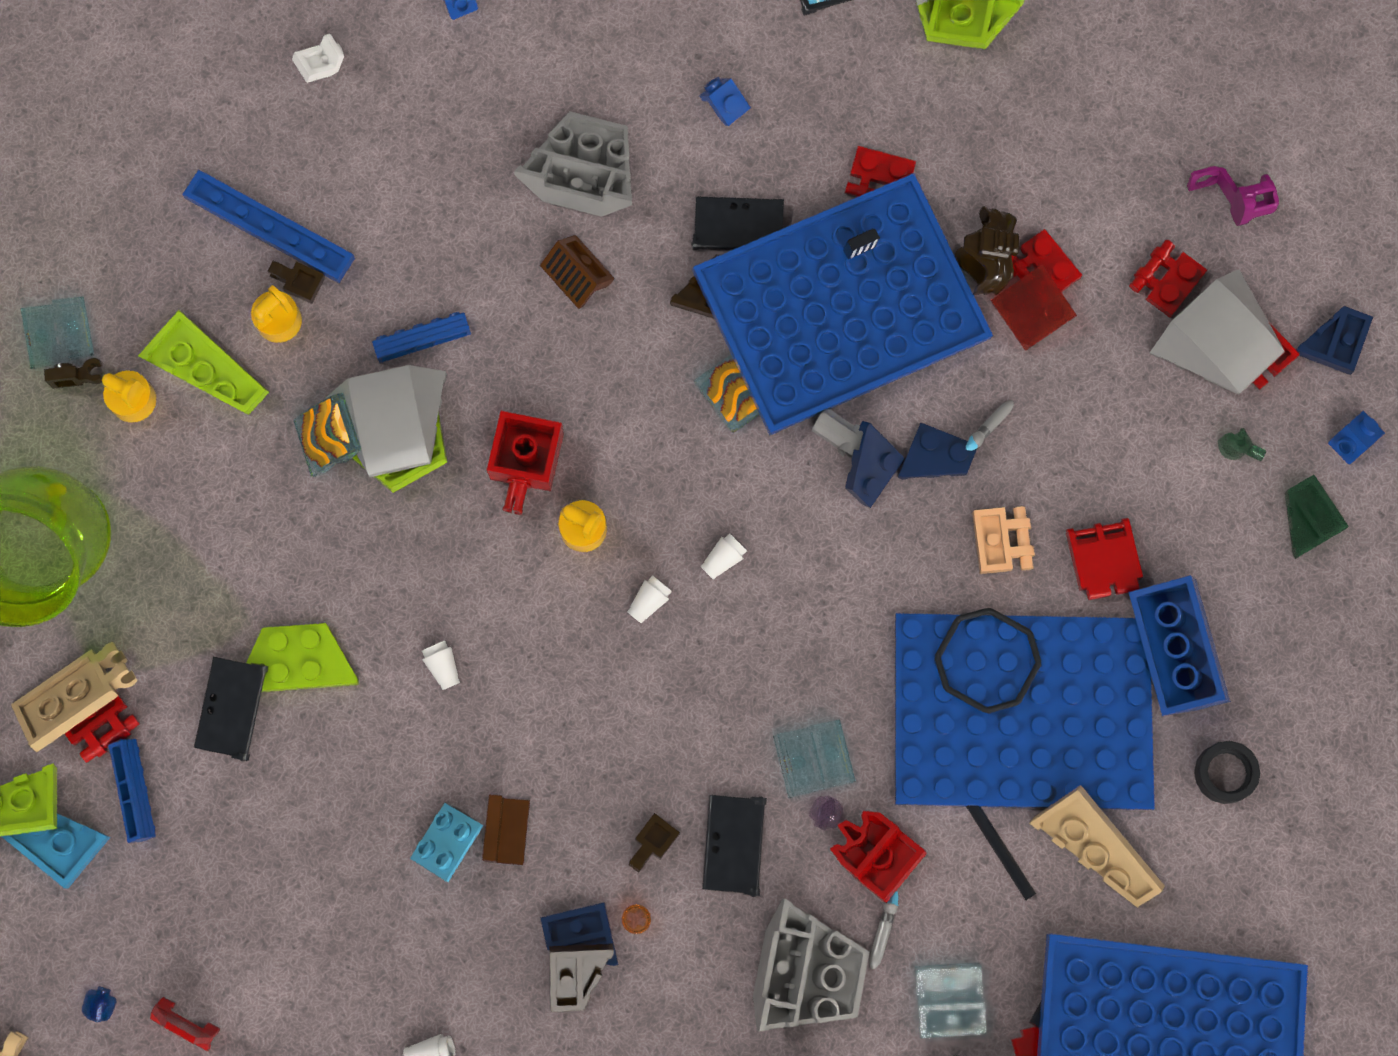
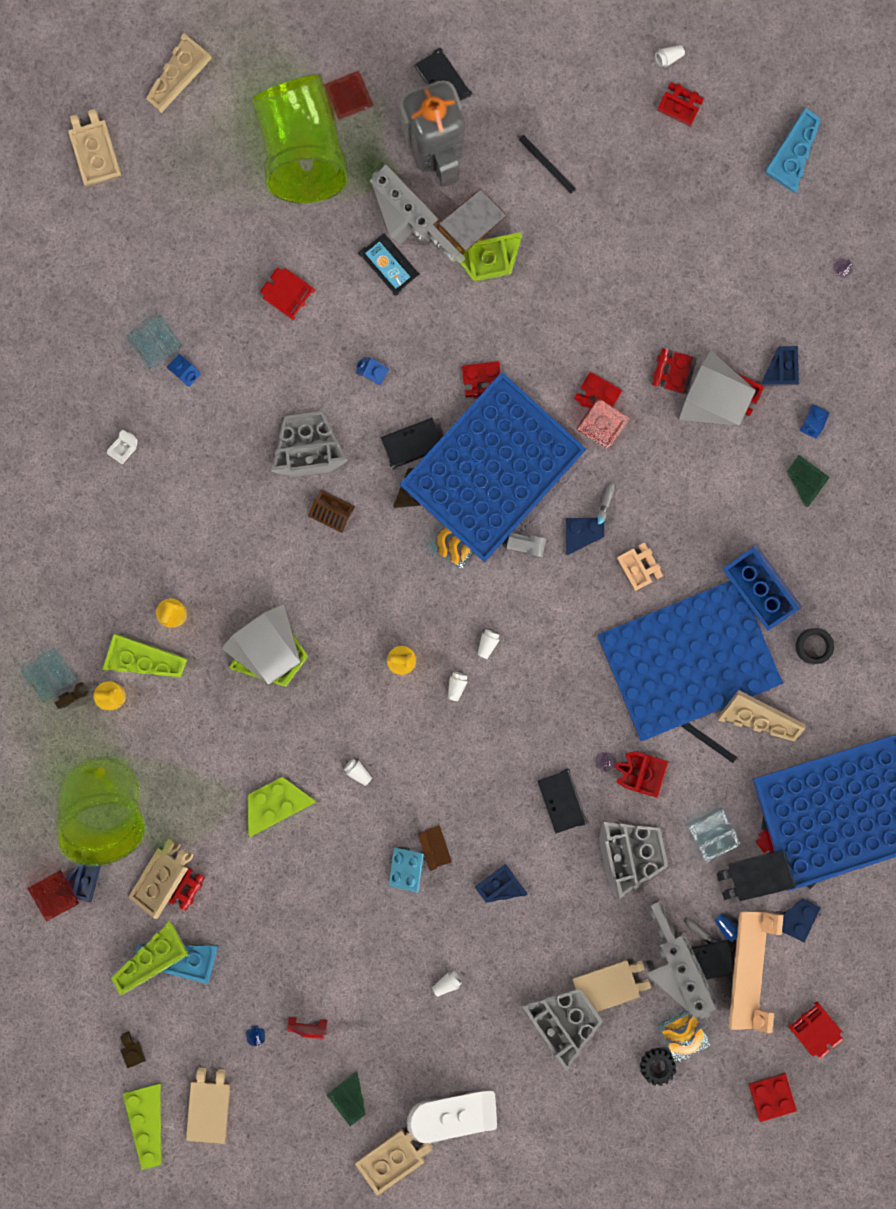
camera: 25 degrees left, 10 degrees up
(132, 790) = (219, 915): blue piece -> none
(233, 707) = (251, 840): black door -> none
(268, 226) = (140, 560): blue plate -> none
(300, 281) = (175, 586): dark brown plate -> none
(327, 434) = (233, 670): slope -> none
(421, 337) = (259, 588): blue piece -> none
(522, 472) = (352, 645): red brick -> none
(575, 973) = (507, 909): wing -> none
(633, 909) = (530, 869): clear orange bush -> none
(654, 839) = (517, 817): dark brown plate -> none
(828, 754) = (592, 729): clear light blue slope -> none
(861, 243) = (490, 429): black tile -> none
(872, 465) = (549, 556): dark blue wing -> none
(883, 931) = (663, 813): light grey piece -> none
(961, 696) = (633, 635): black piece -> none
(989, 251) = (565, 400): dark brown piece -> none
(1105, 559) = (701, 553): red plate -> none
(1237, 445) = (752, 455): clear green piece -> none
(1242, 199) = (698, 307): magenta piece -> none

